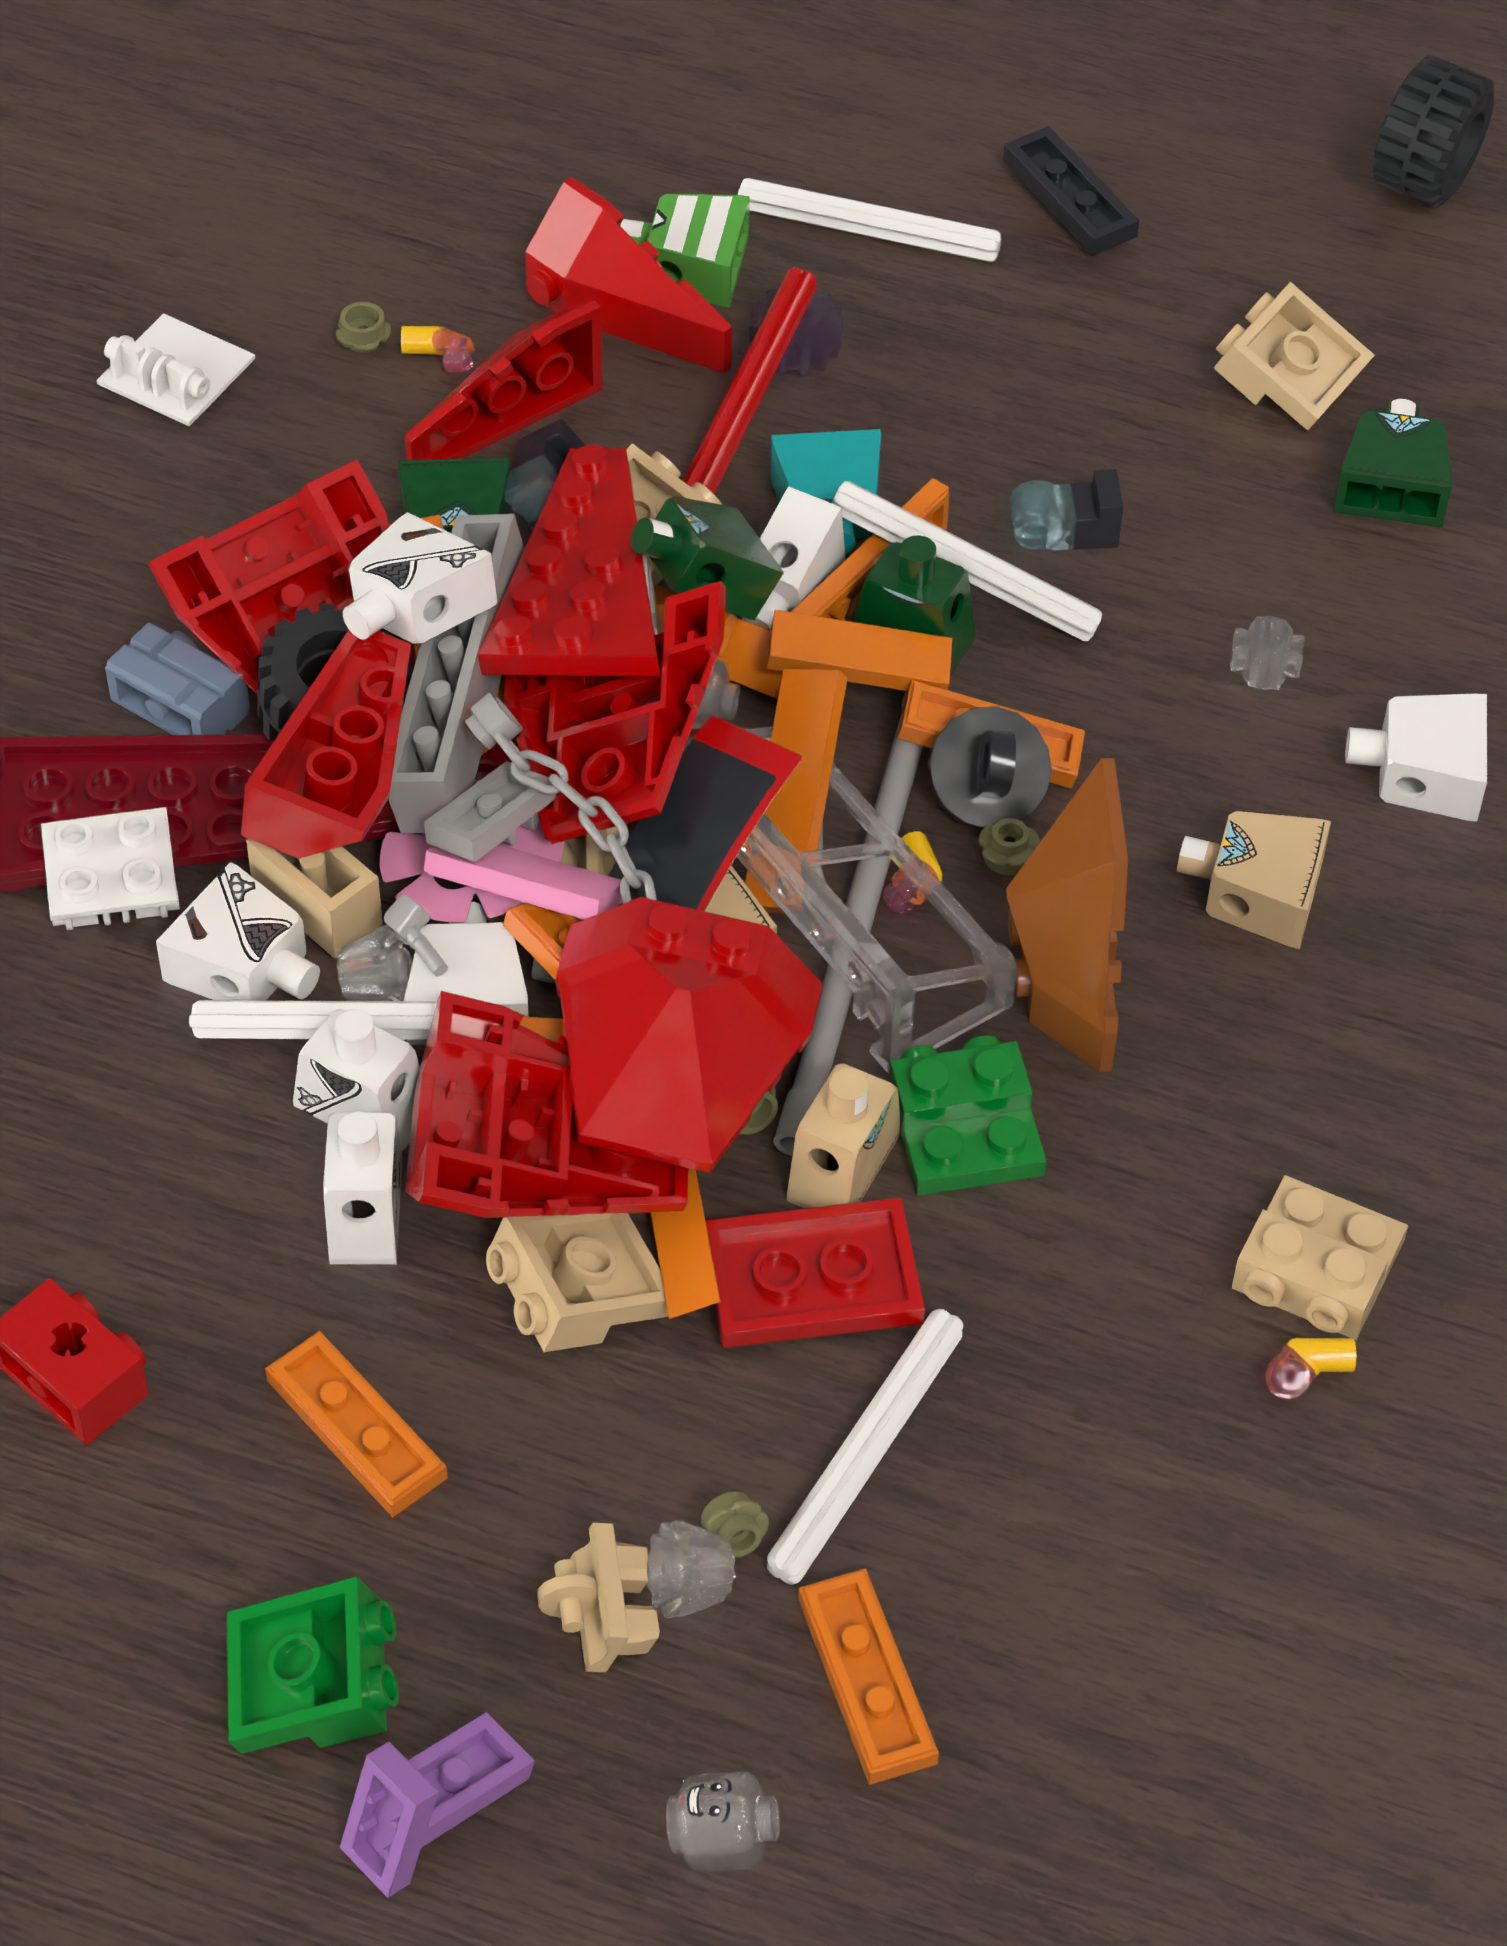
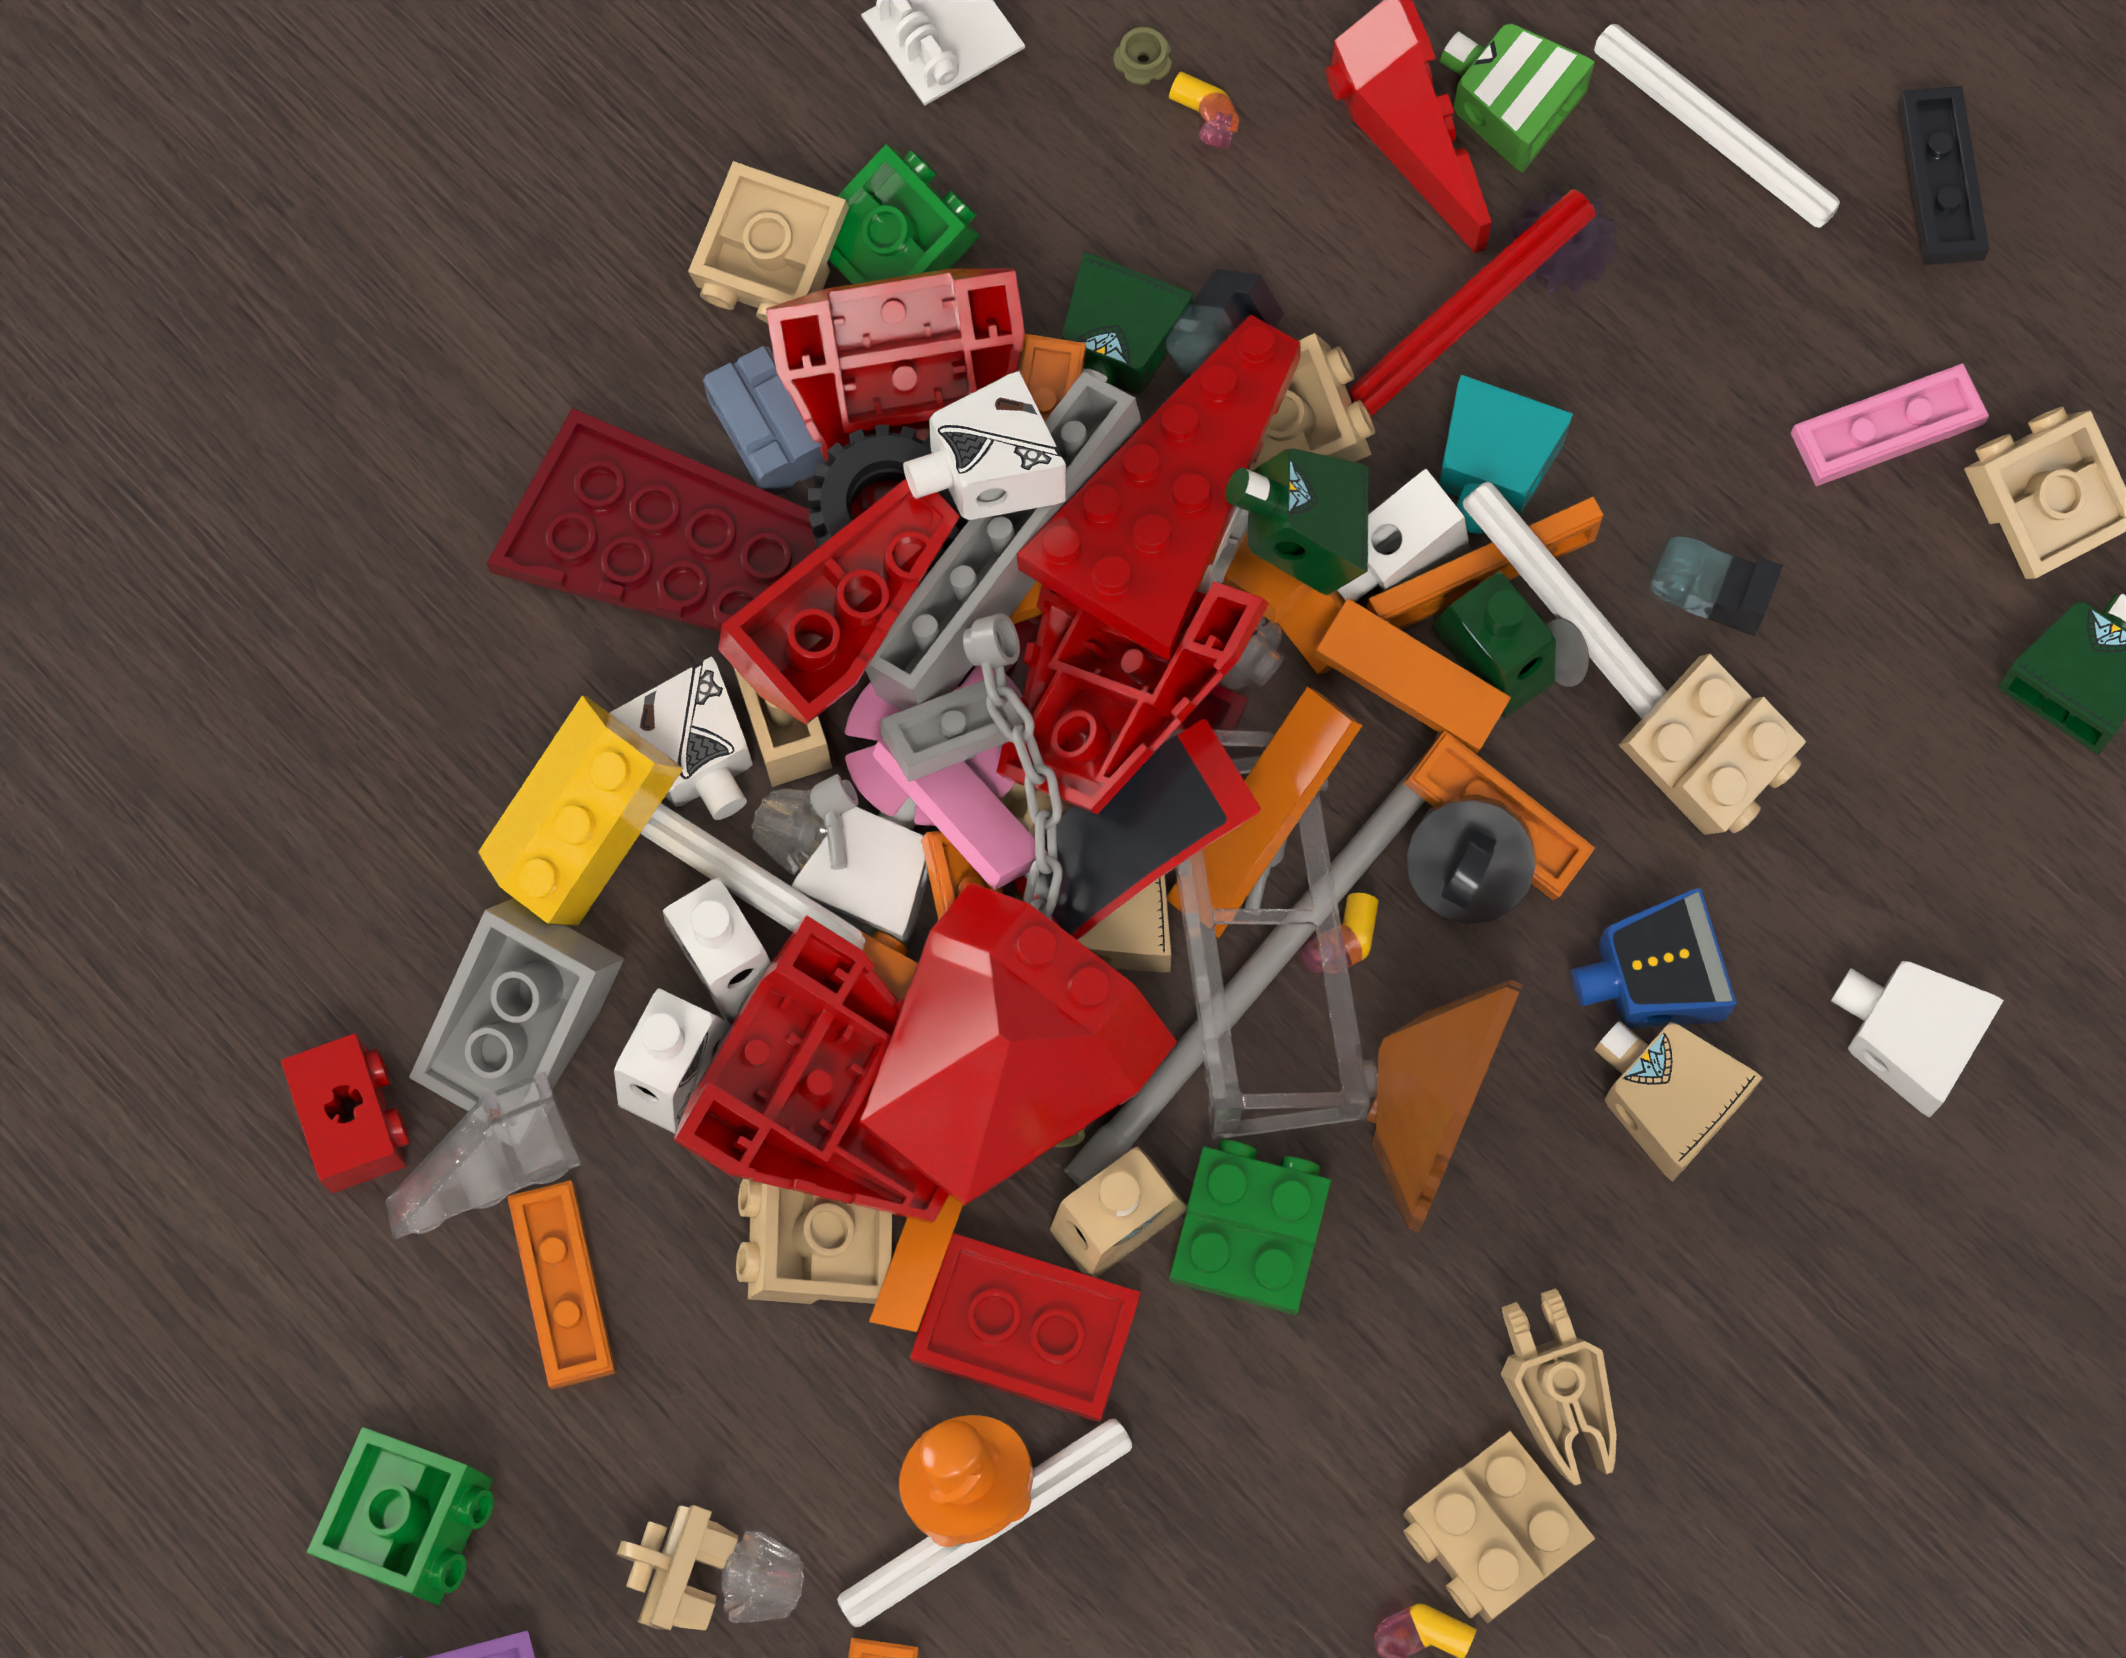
camera: 30 degrees right, 20 degrees up
(102, 556) = (766, 241): none -> tan plate
(109, 867) = (610, 602): white hinge -> none
(170, 1025) = (577, 815): none -> yellow slope
(193, 1219) = (514, 1005): none -> light grey slope
(206, 494) = (900, 221): none -> green plate
(235, 1323) = (494, 1150): none -> clear slope
(517, 386) = (1267, 192): red wedge -> none
(737, 1520) = (826, 1551): olive plate -> none
(830, 1403) = (966, 1480): none -> orange plate
(985, 601) = (1571, 653): none -> flat silver sticker
(1007, 845) = (1447, 960): olive plate -> none
(1133, 367) = (1889, 424): none -> bright pink tile
(1140, 620) = (1714, 747): none -> tan plate
(1193, 785) = (1660, 967): none -> torso
(1267, 652) = (1838, 836): clear gear -> none
(1310, 1120) = (1560, 1388): none -> tan hinge

